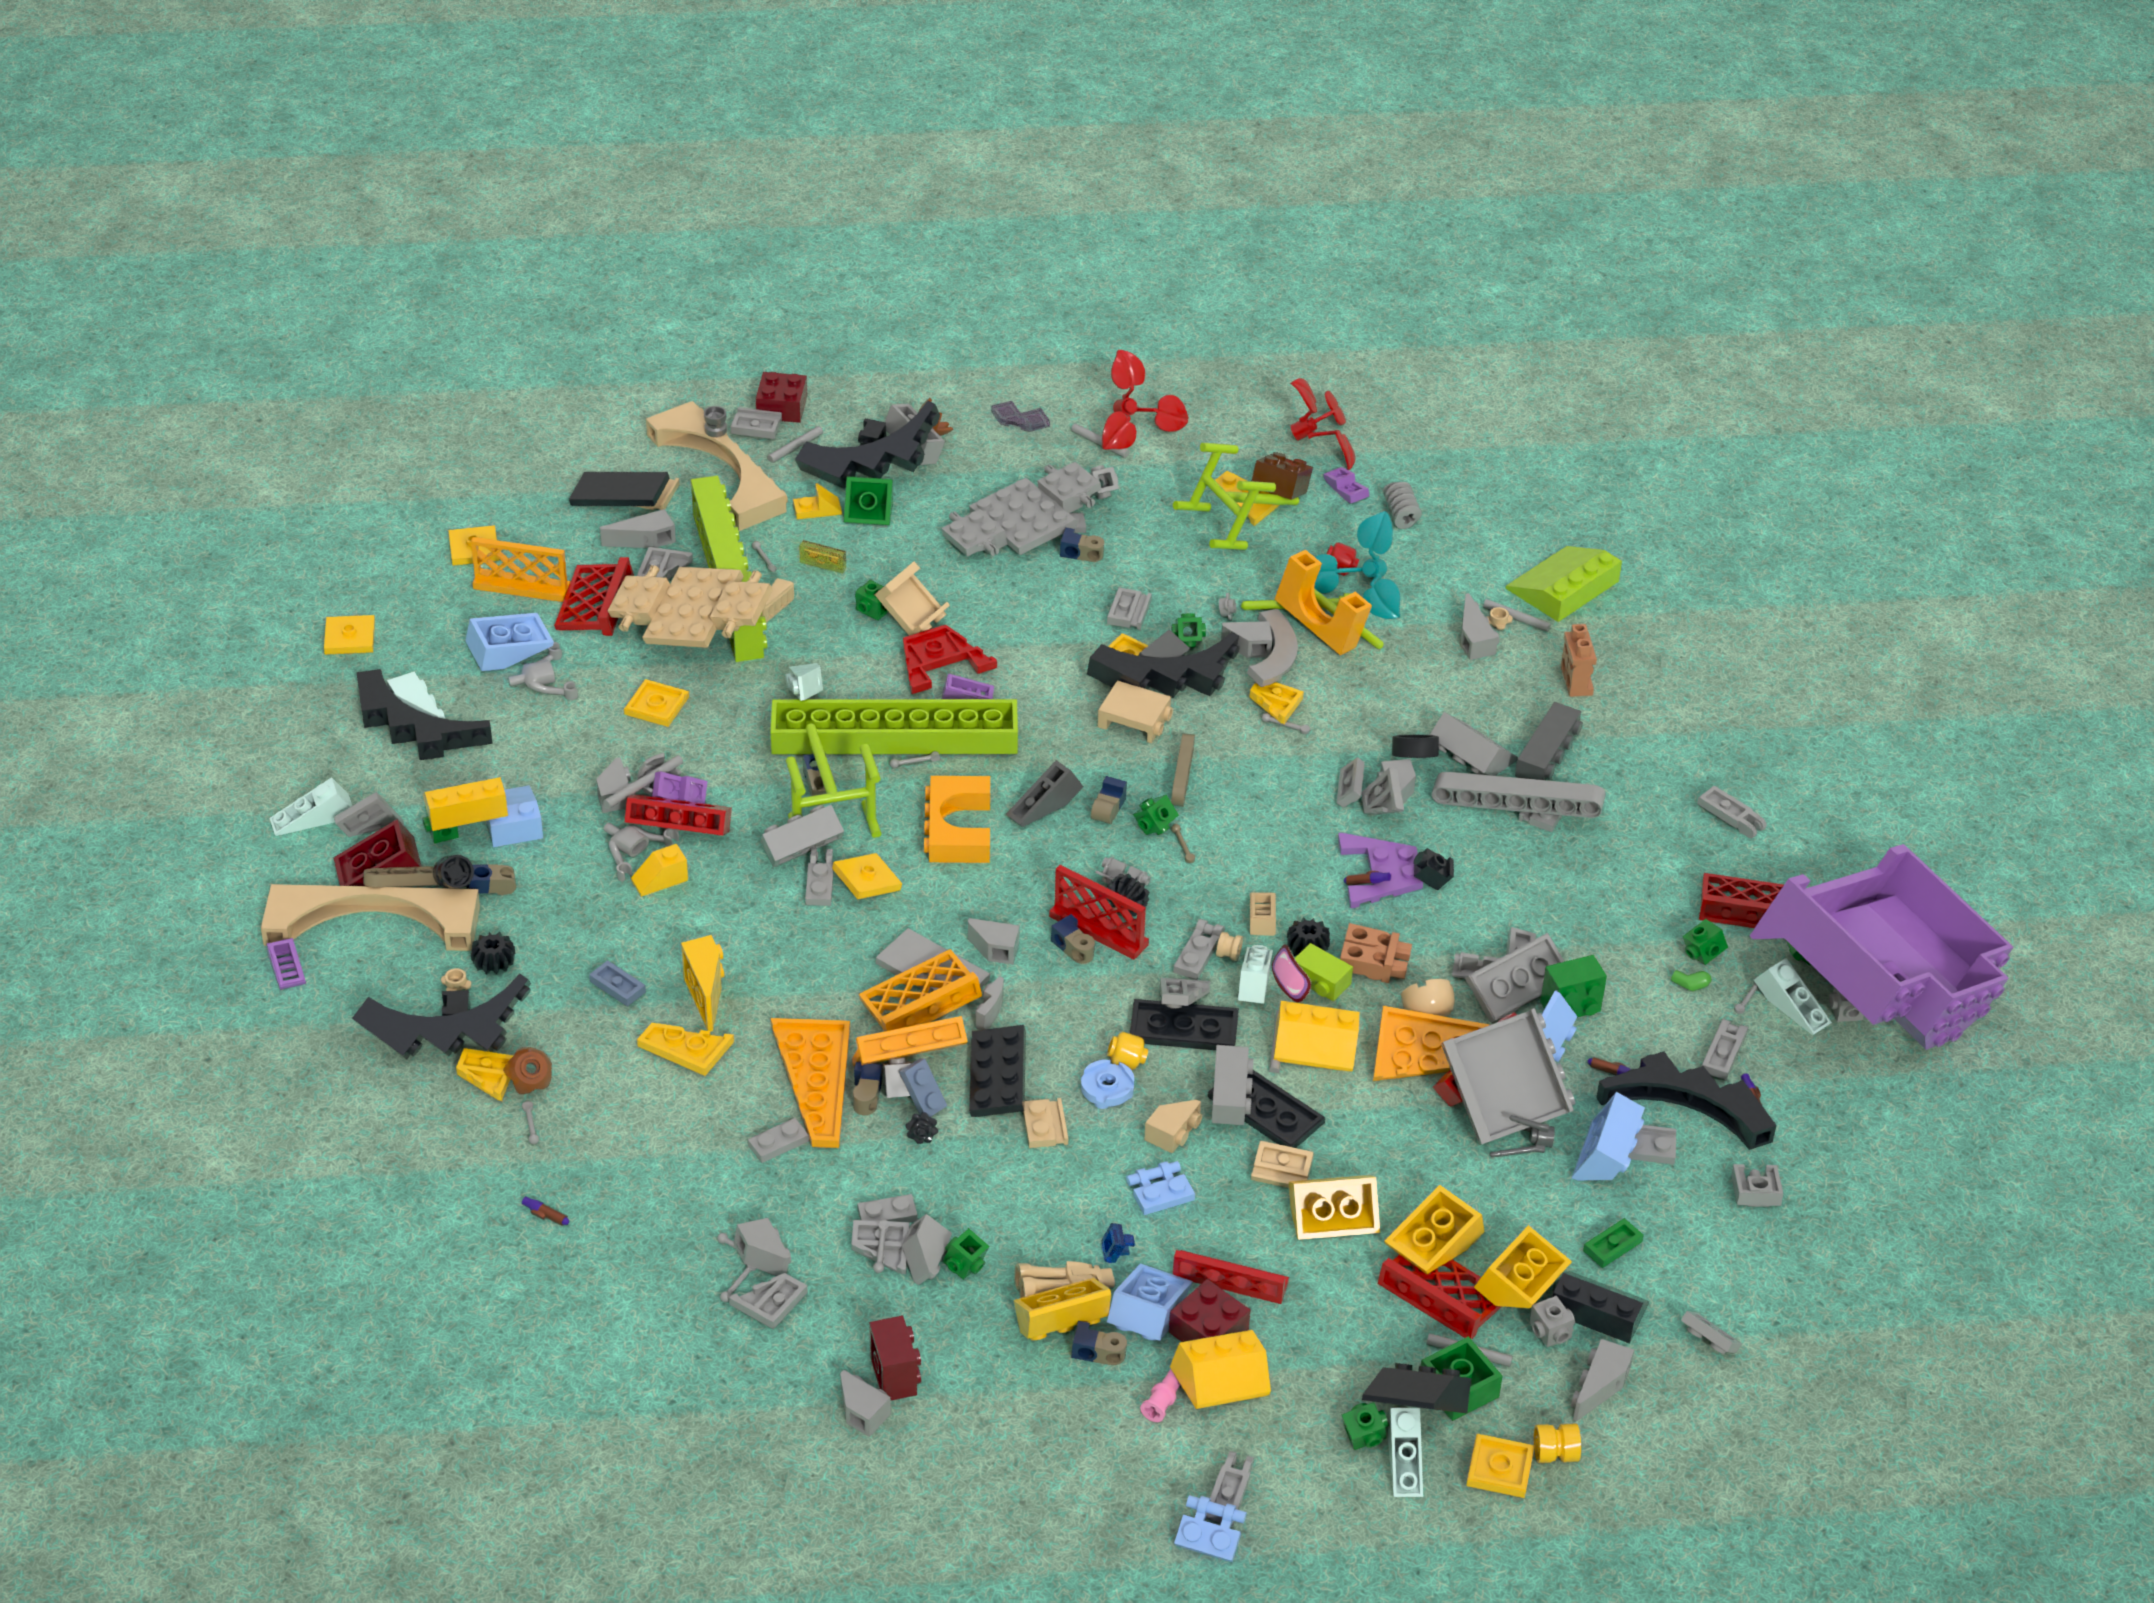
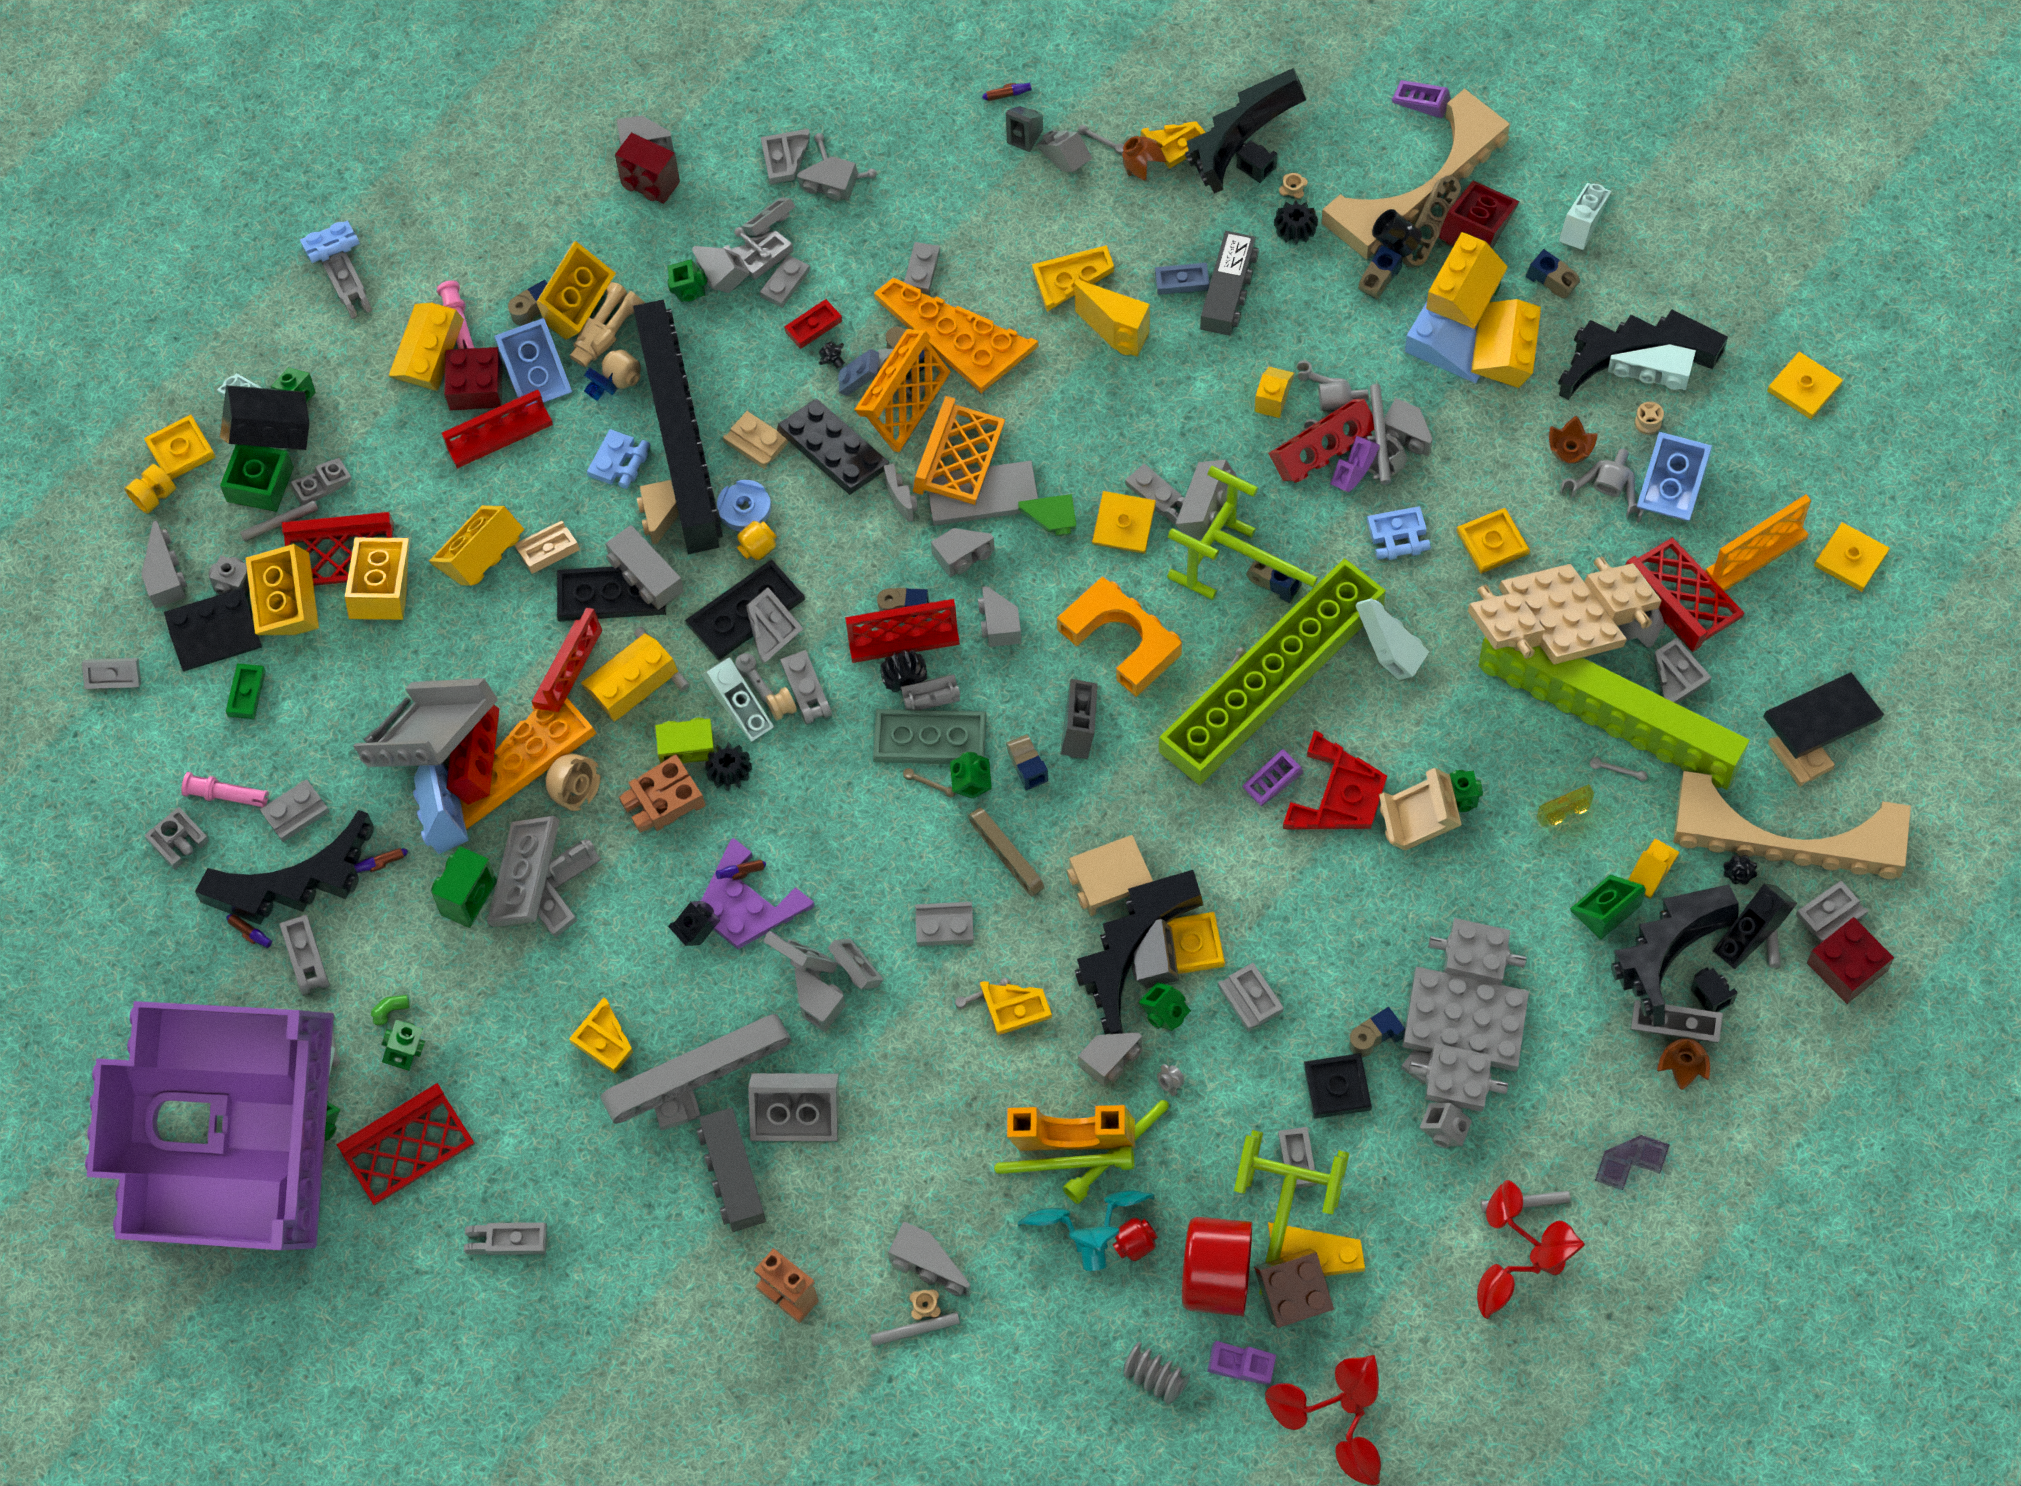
camera: 140 degrees right, 20 degrees up
(366, 816) = (1534, 240): light grey wing -> none
(390, 790) = (1553, 274): none -> leg
(466, 683) = (1650, 411): none -> tan wheel
(487, 763) = (1507, 341): none -> yellow slope
(535, 702) = (1571, 435): none -> dark orange piece
(570, 1128) = (1065, 149): none -> light grey slope
(576, 1159) = (1023, 127): none -> dark grey slope
(583, 955) = (1228, 283): none -> dark grey brick
(640, 532) = (1738, 692): light grey slope -> none
(707, 744) = (1395, 526): none -> light blue plate
(715, 425) = (1840, 837): flat silver wheel -> none
(774, 468) = (1740, 869): none -> black plant
(780, 597) = (1541, 724): tan slope -> none
(792, 433) = (1755, 924): none -> black slope
(843, 1260) = (773, 213): none -> light grey plate
(907, 910) = (1051, 513): none -> bright green slope
(907, 1160) = (813, 323): none -> red plate
(1024, 882) = (1001, 617): none -> light grey slope
(1088, 1238) = (621, 369): none -> tan head
(1094, 1157) = (678, 427): none -> black brick
(1135, 543) = (1337, 1086): none -> black plate
(1169, 874) = (927, 735): none -> sand green tile
(1200, 531) = (1297, 1151): none -> light grey plate
(1225, 988) = (747, 668): none -> light grey piece
(1263, 915) = (780, 767): tan slope -> none
(1267, 769) = (944, 923): none -> light grey plate
(1283, 650) = (1061, 1063): light grey tile -> none
(1290, 975) = (725, 722): sticker -> none
(1315, 497) = (1217, 1266): none -> red piece
(1353, 1069) = (568, 663): none -> red fence
(1399, 1348) = (325, 480): none -> light grey slope
(1415, 746) = (854, 1050): black tyre -> none
(1560, 862) = (603, 1038): none -> yellow wing
(1567, 580) = (913, 1417): lime slope -> none
(1610, 1140) = (314, 764): light blue slope -> none
(1699, 1196) = (211, 788): none -> bright pink pin

